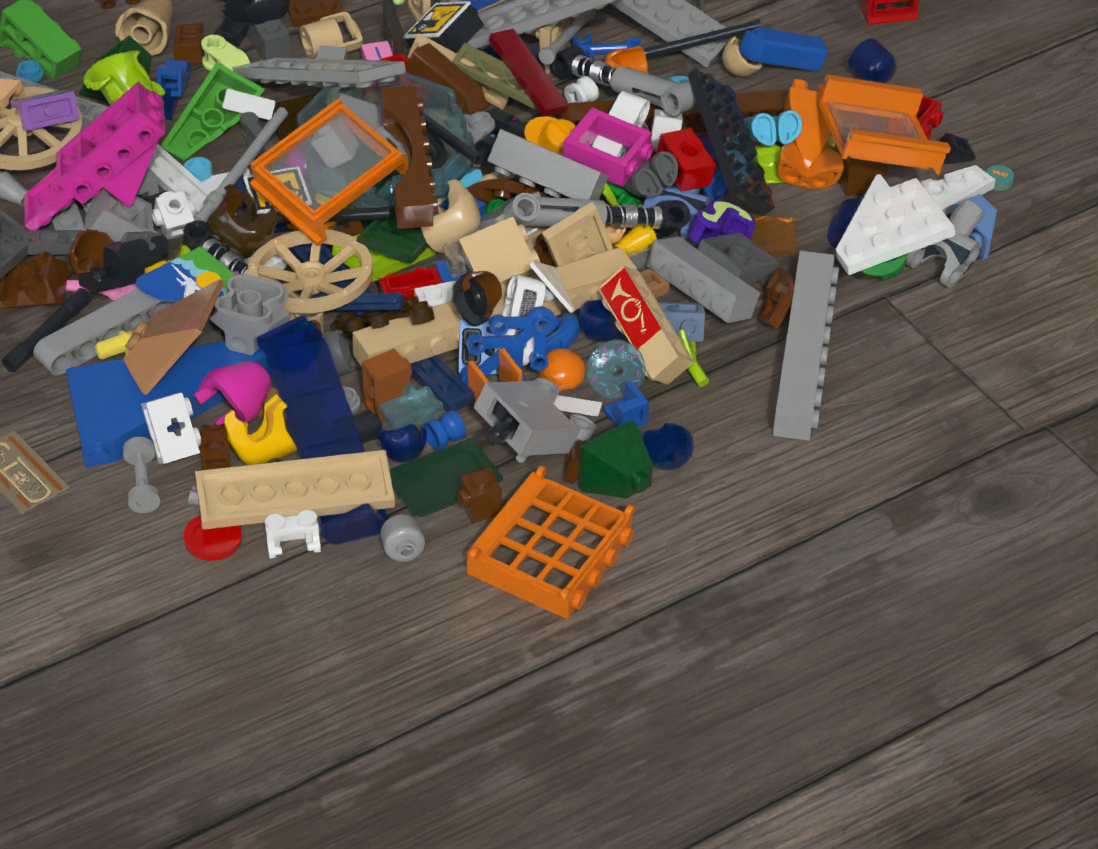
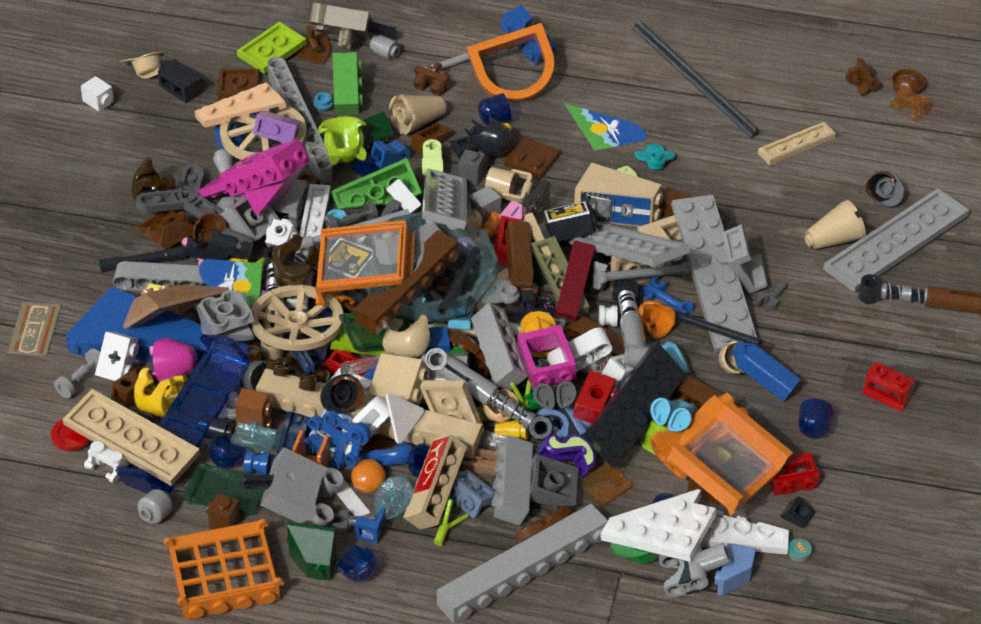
camera: 45 degrees right, 0 degrees up
(227, 142) = (369, 211): none -> flat silver wheel
(601, 419) = (347, 521): none -> dark grey bar

